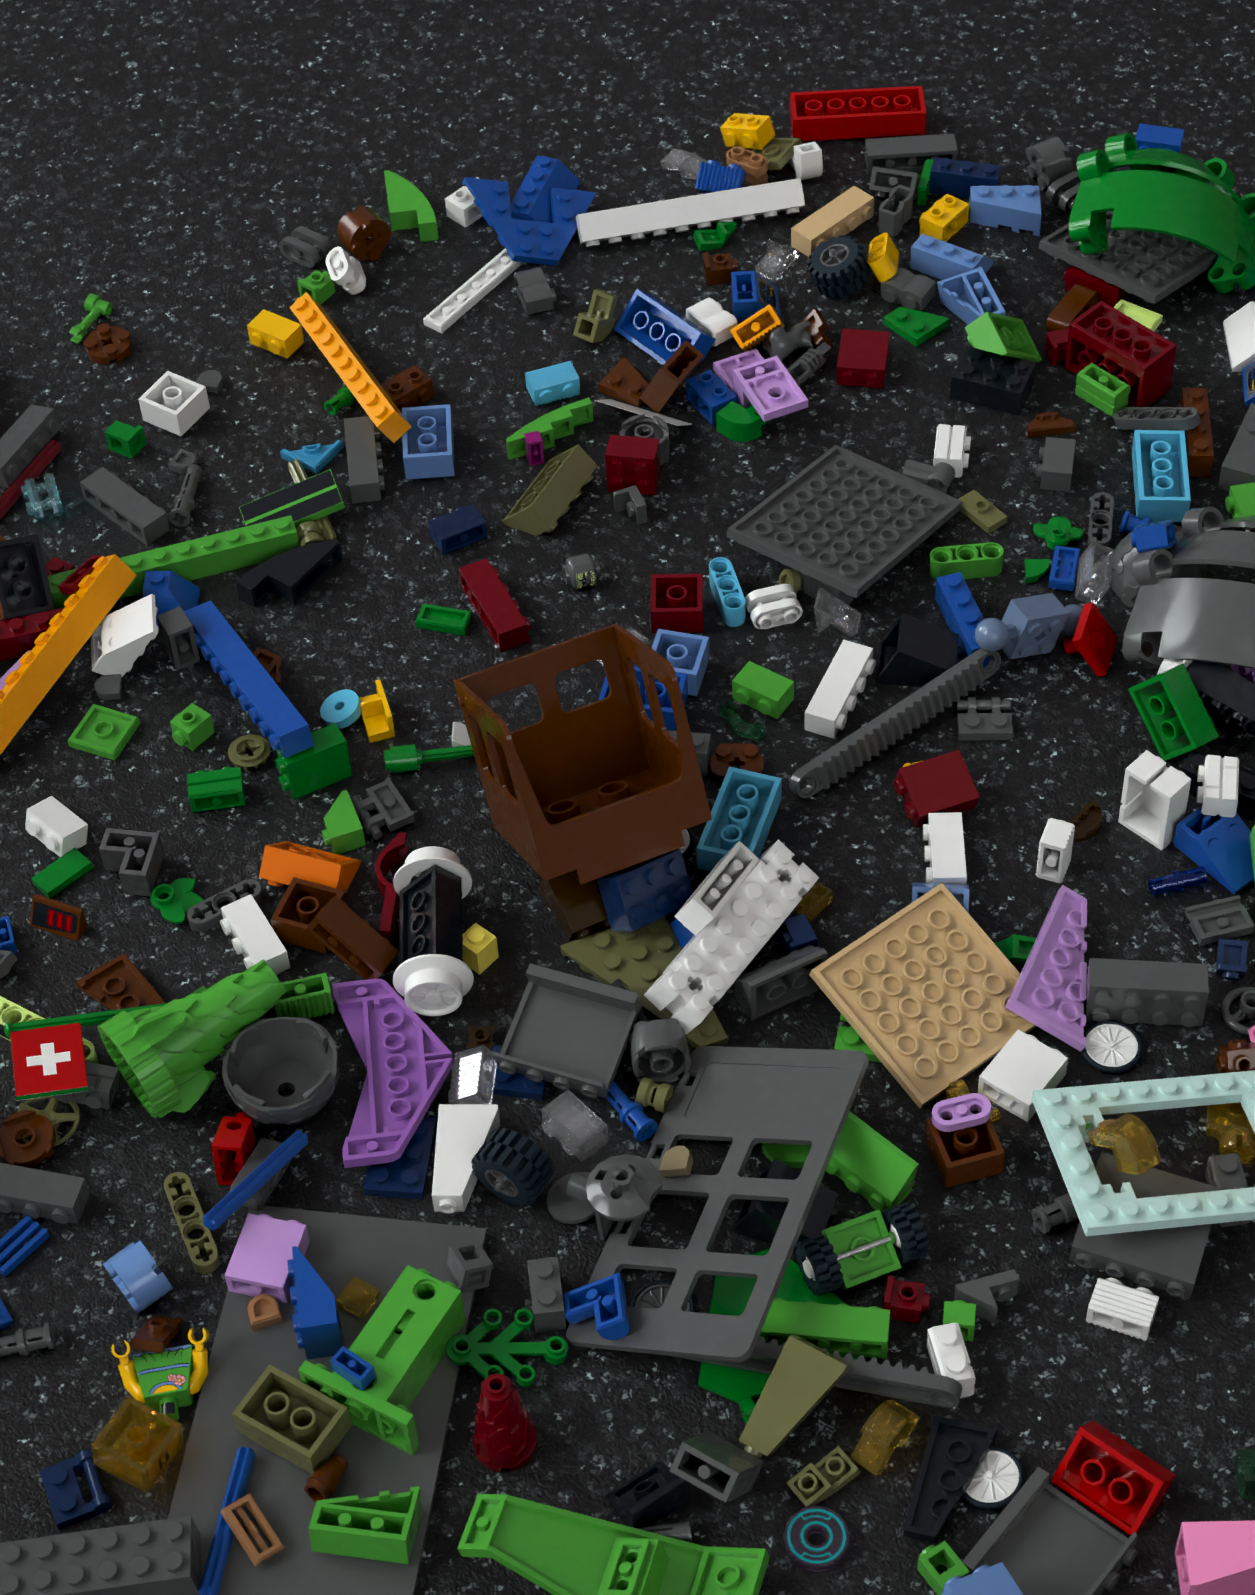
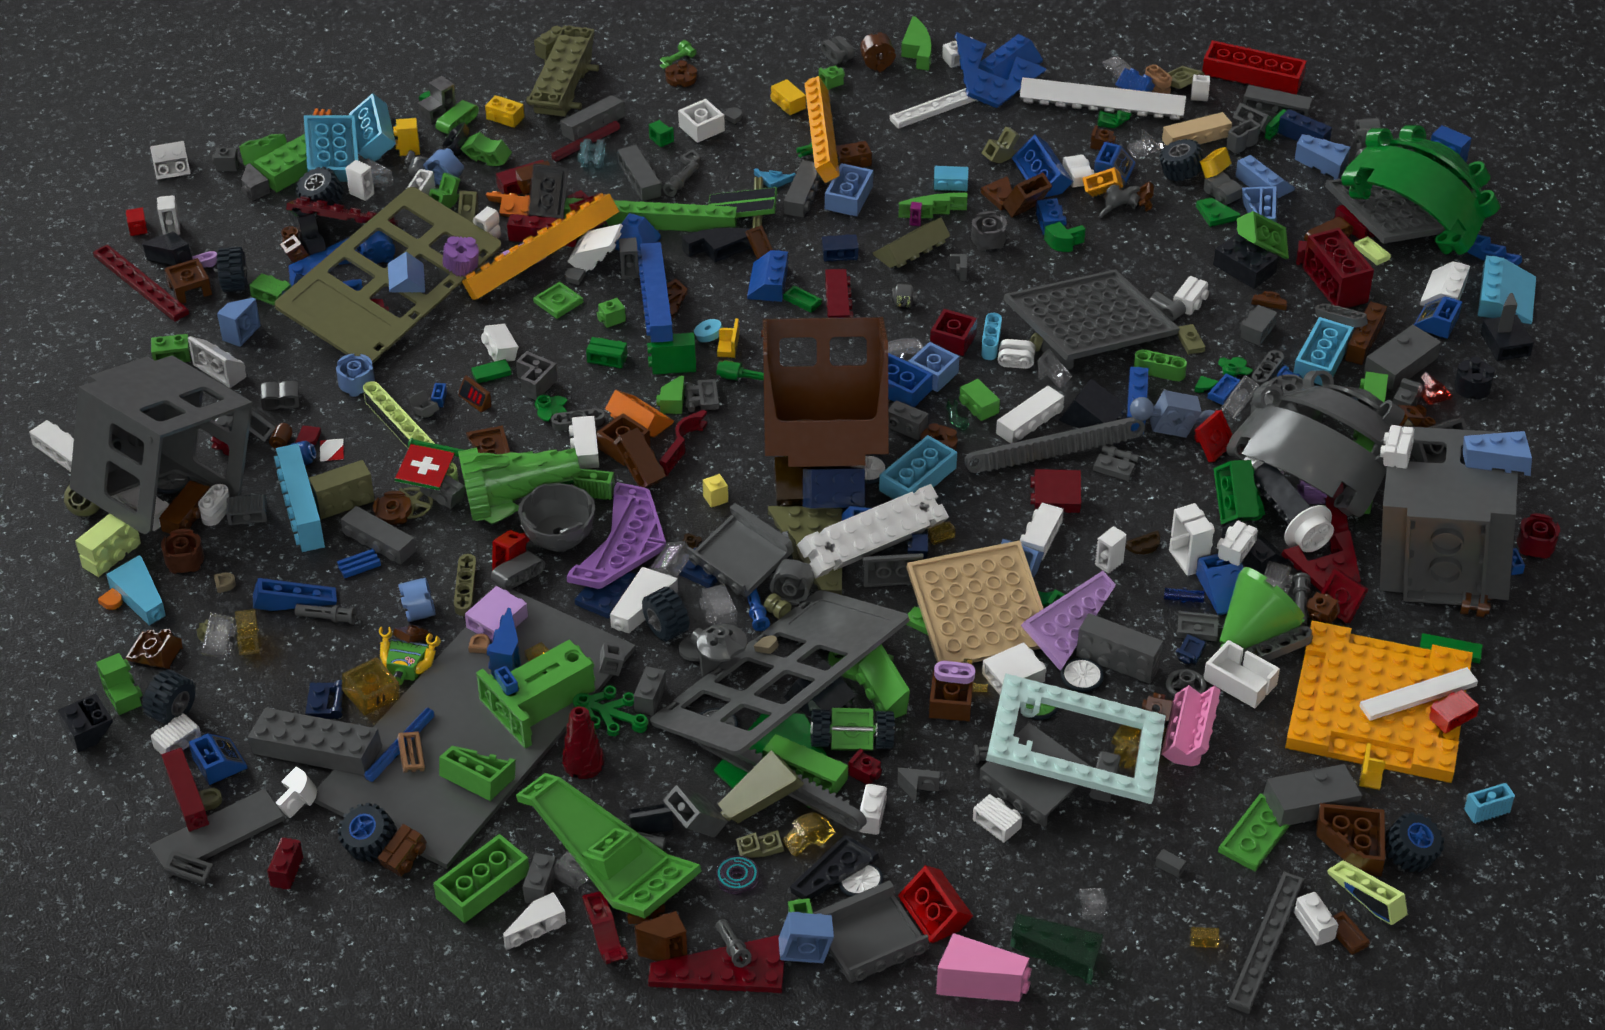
camera: 20 degrees right, 5 degrees down
(255, 1180) = (509, 569): blue axle -> none
(256, 744) = (632, 338): olive gear -> none
(292, 1419) = (463, 702): olive brick -> none
(309, 533) = (744, 221): olive wheel -> none
(326, 1479) = (468, 740): reddish brown cone -> none
(345, 270) = (854, 71): white brick -> none
(348, 558) = (758, 241): none -> reddish brown plate
(383, 602) = (769, 276): none -> blue slope
(431, 936) = (677, 491): brick -> none
(534, 290) = (971, 118): dark grey brick -> none
(602, 1300) = (675, 705): blue brick -> none
(632, 463) = (972, 239): dark red brick -> none
(641, 411) = (999, 212): white sticker -> none
(717, 888) = (874, 496): white brick -> none
(747, 131) = (1171, 58): yellow brick -> none
(761, 384) = (1085, 217): lavender bracket -> none
(809, 363) = (1127, 215): dark grey hinge -> none
(863, 358) = (1166, 222): dark red brick -> none
(944, 218) = (1275, 151): yellow brick -> none
(962, 1313) = (895, 789): bright green plate -> none
(1102, 389) = (1316, 287): bright green brick -> none
(1130, 1141) = (1040, 716): clear yellow brick -> none
(1154, 536) = (1279, 377): blue brick -> none

